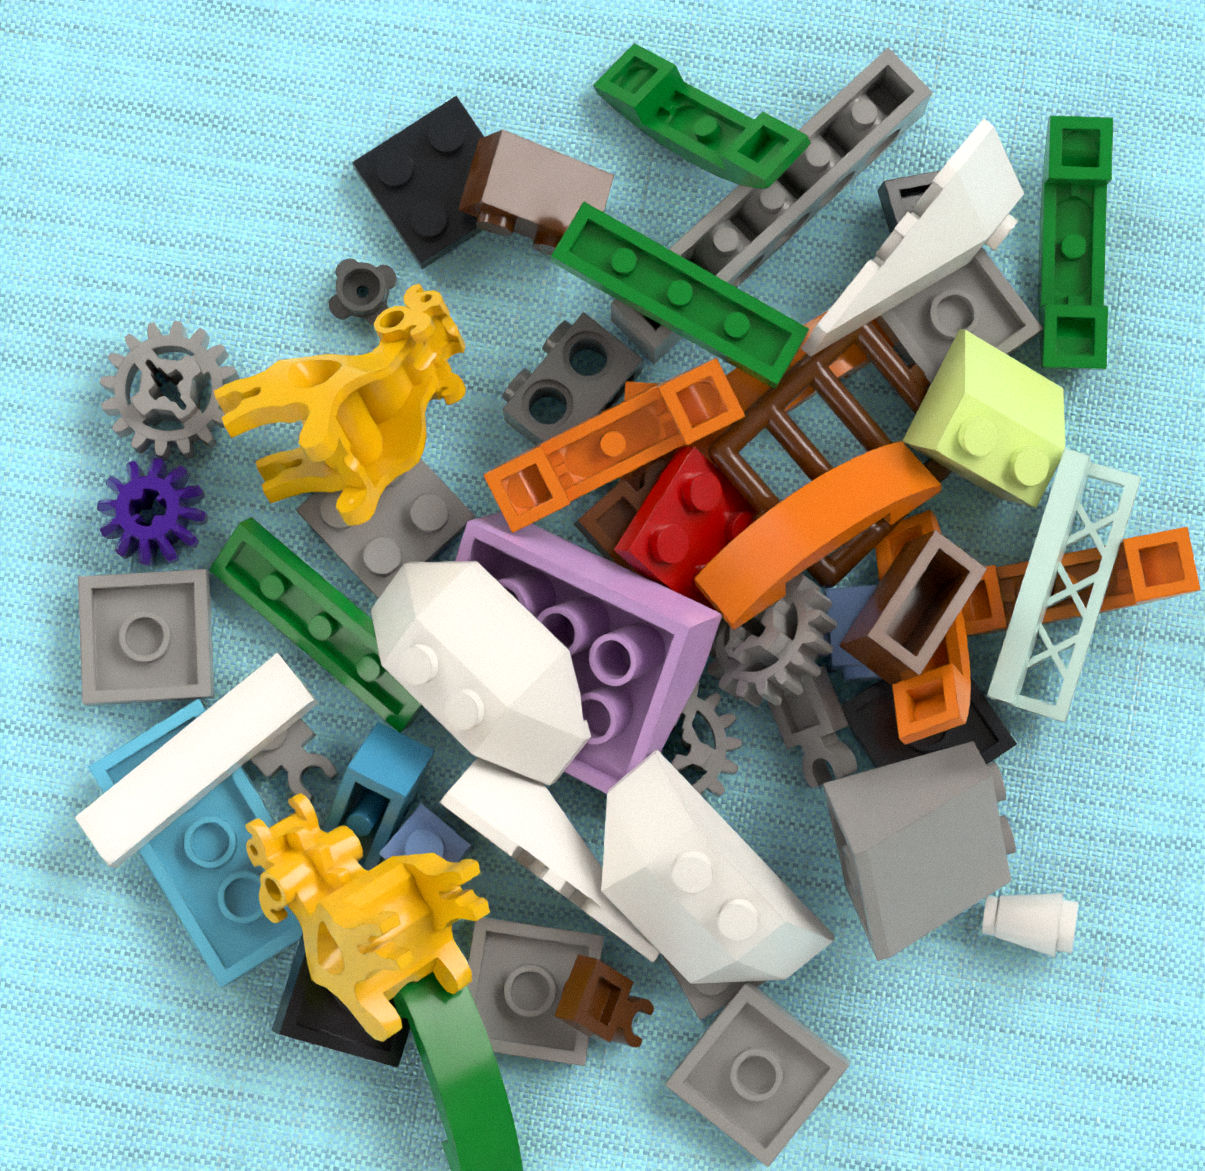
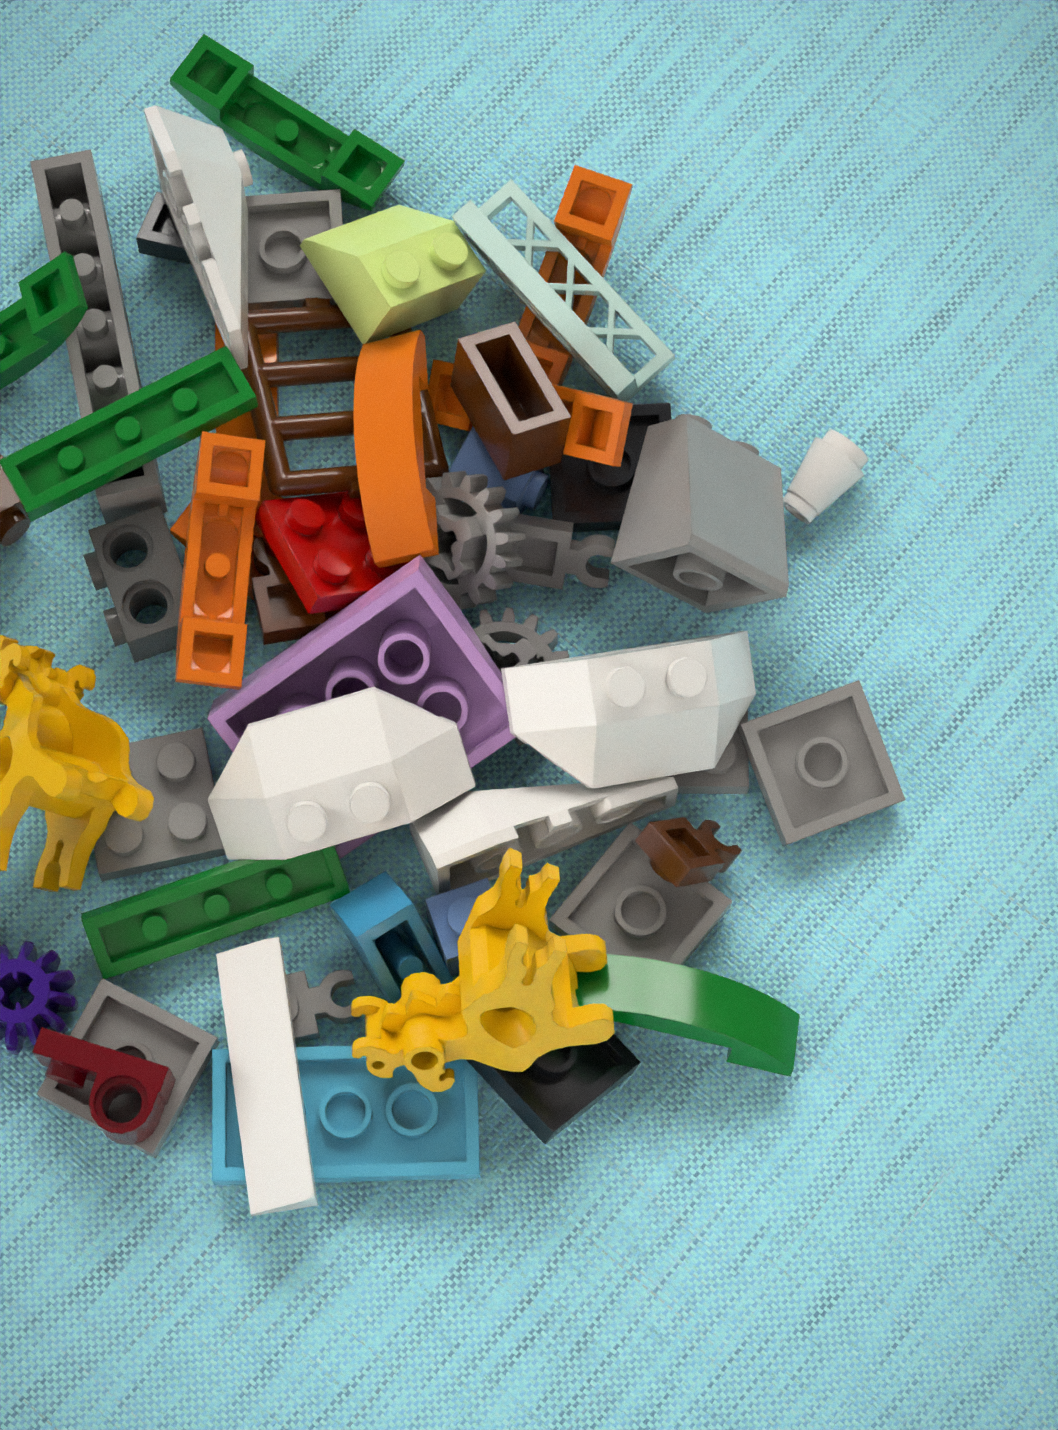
camera: 60 degrees left, 10 degrees down
(115, 595) = (113, 1074): none -> dark red plate

